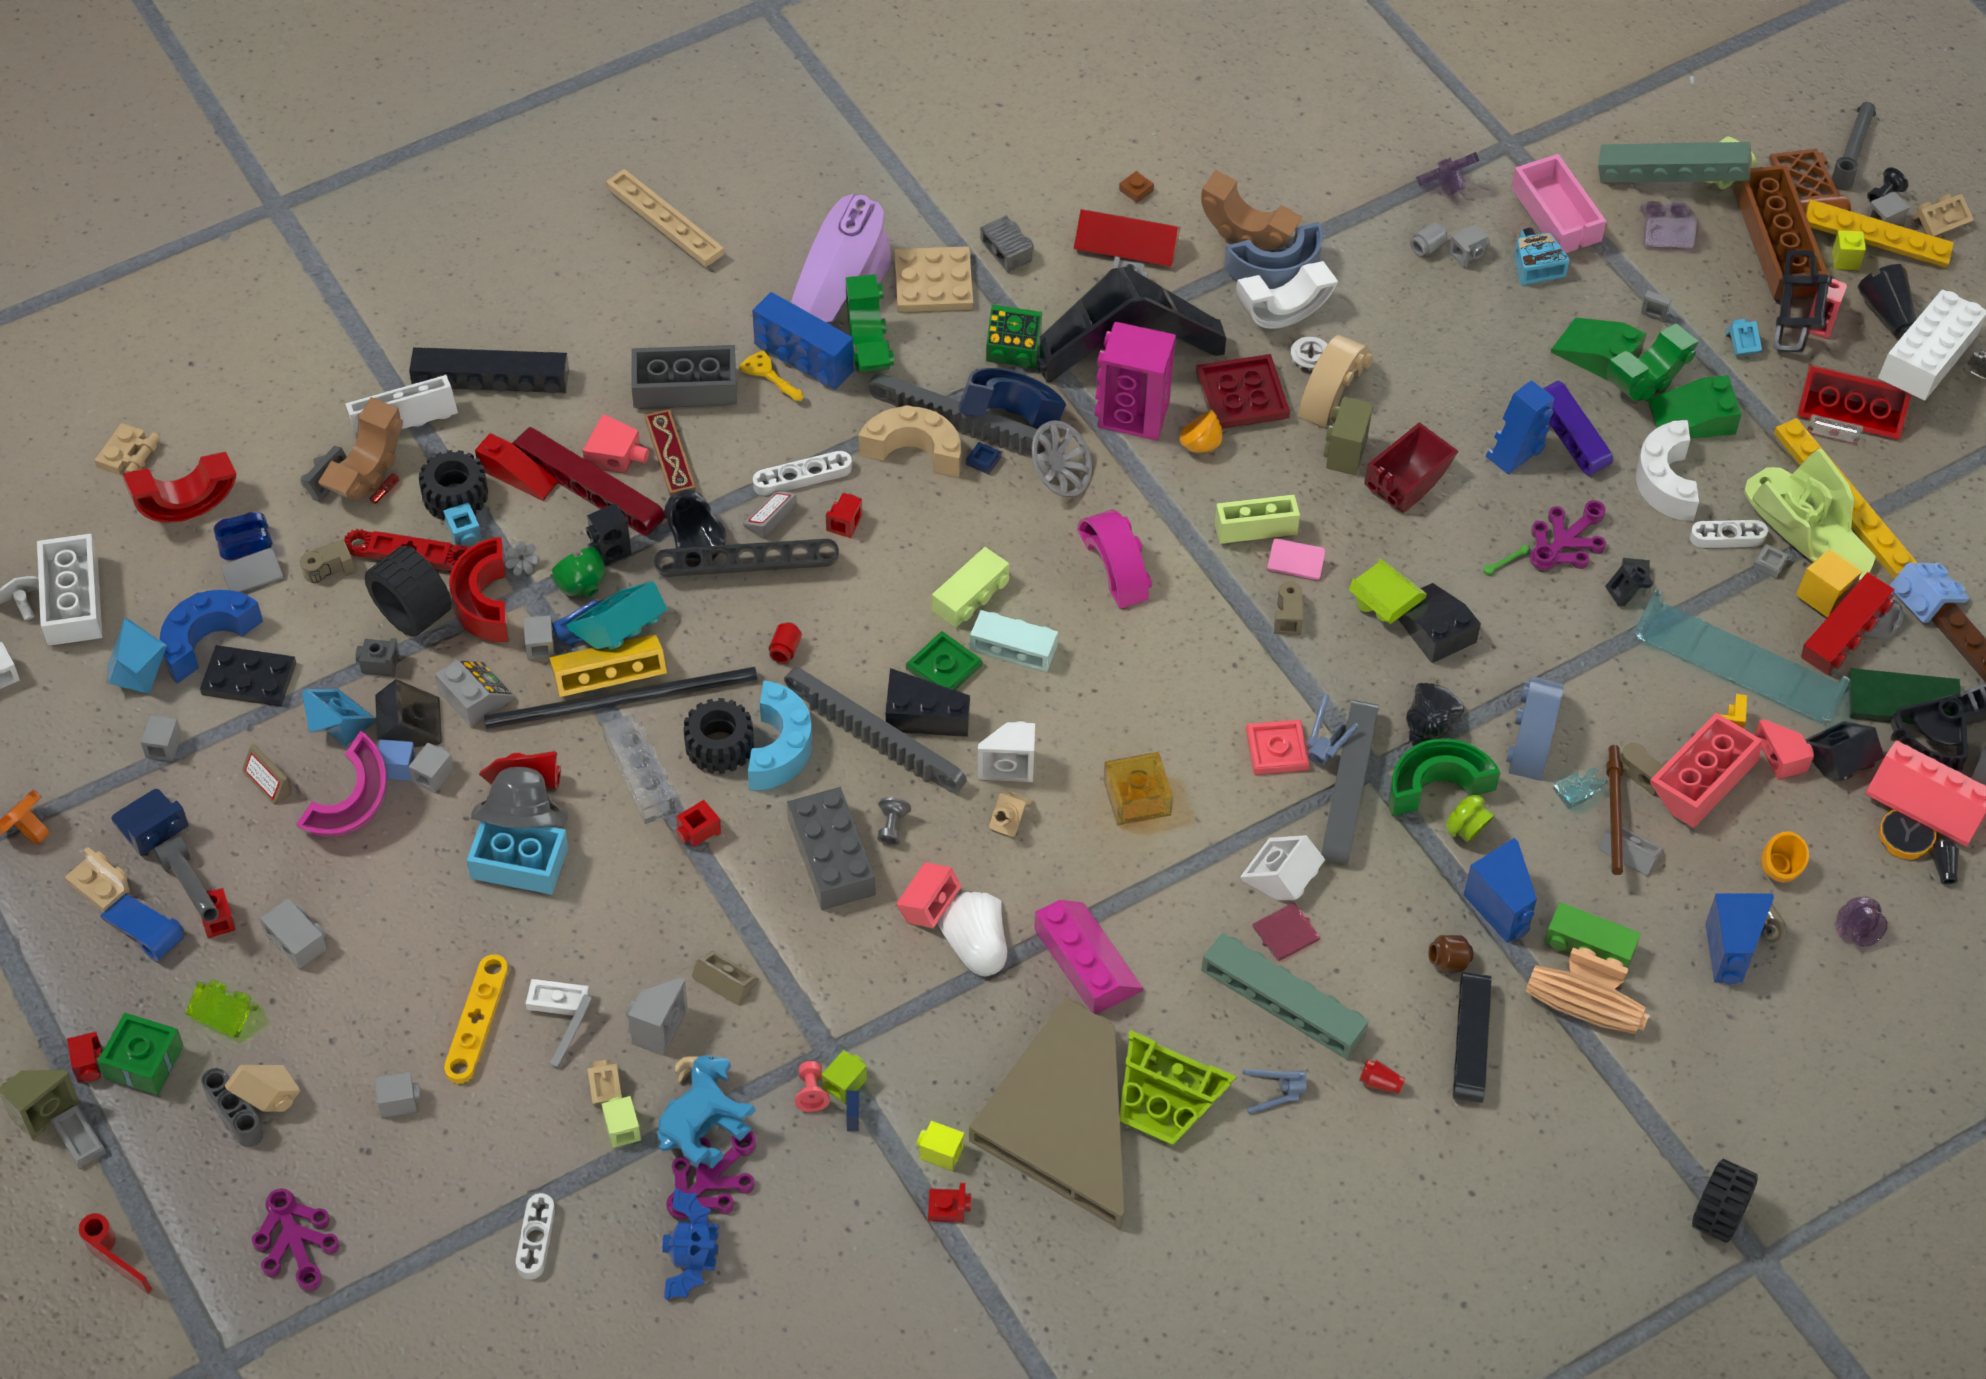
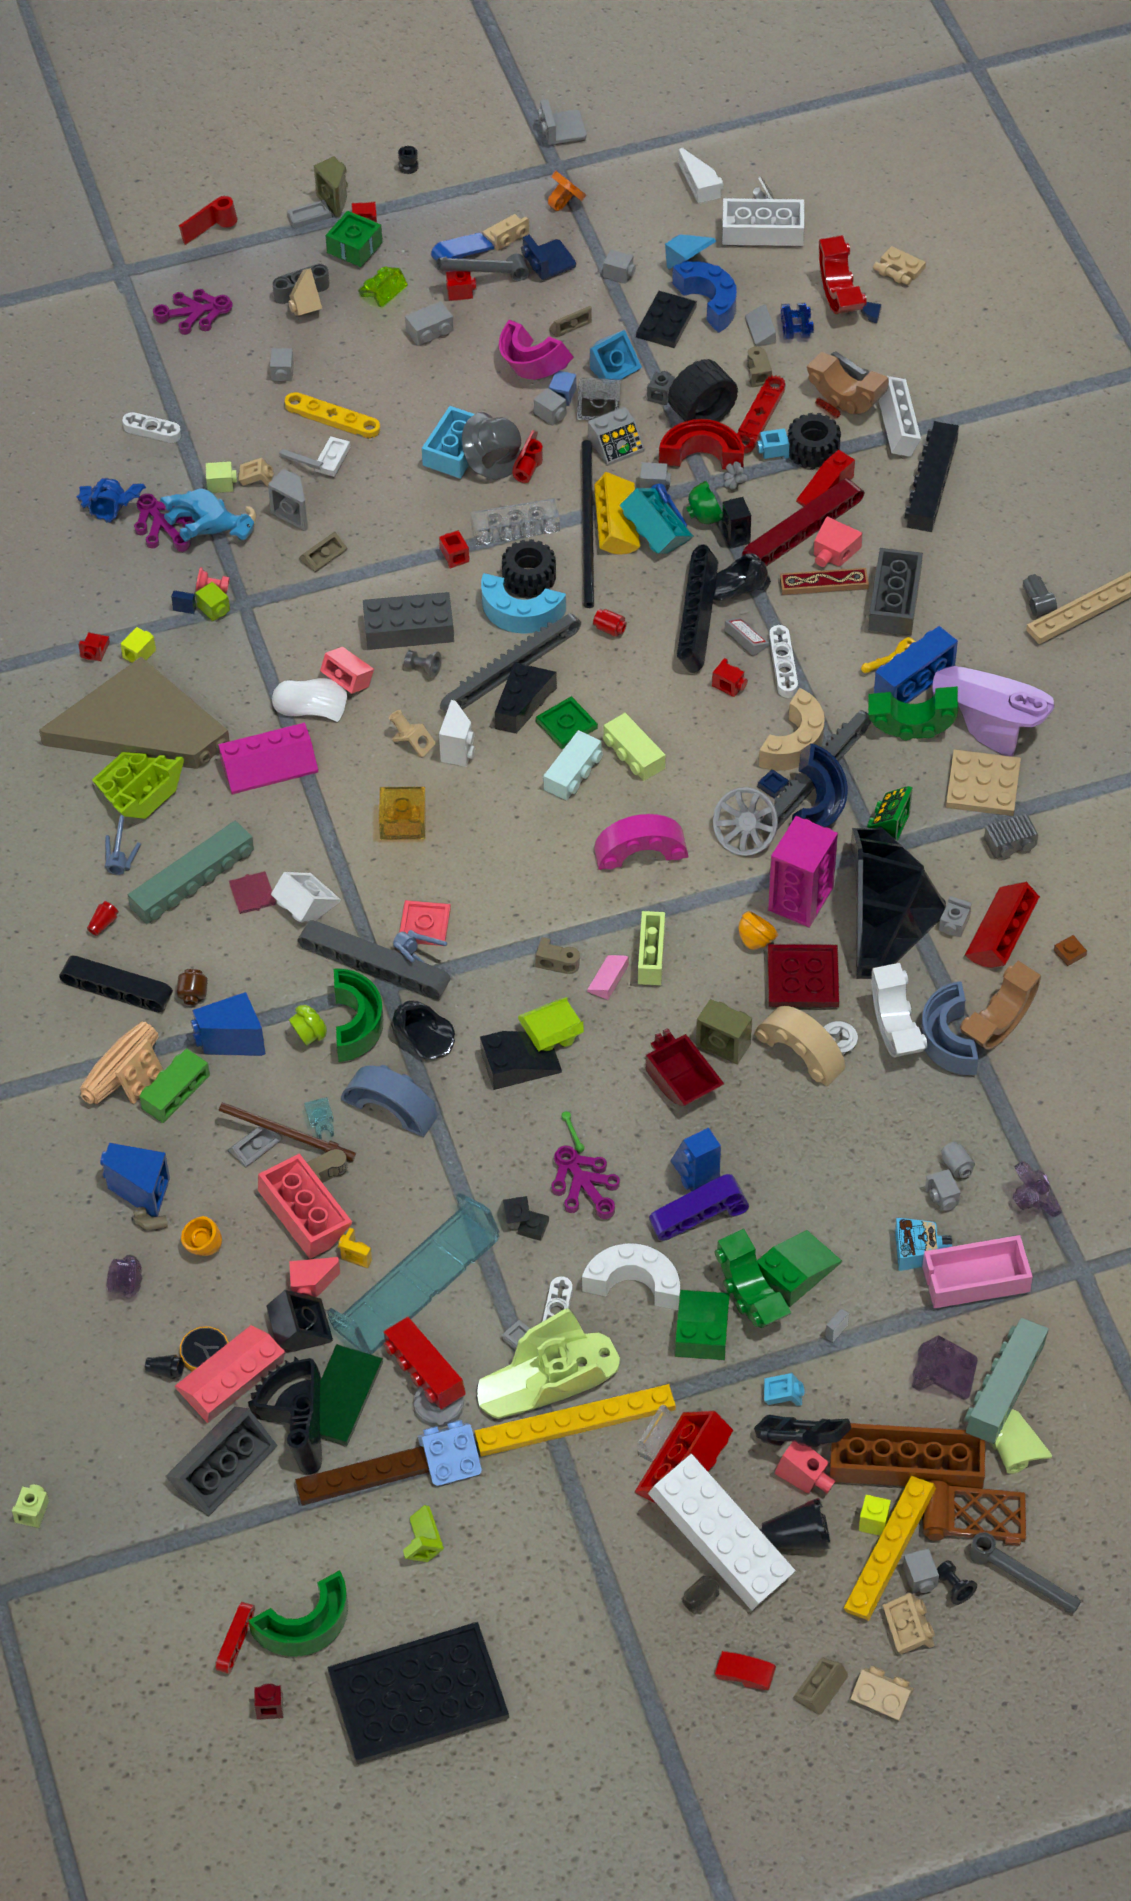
camera: 105 degrees right, 0 degrees up
(664, 254) = (1040, 599): none -> dark grey piece
(1828, 582) = (471, 1359): yellow head -> none

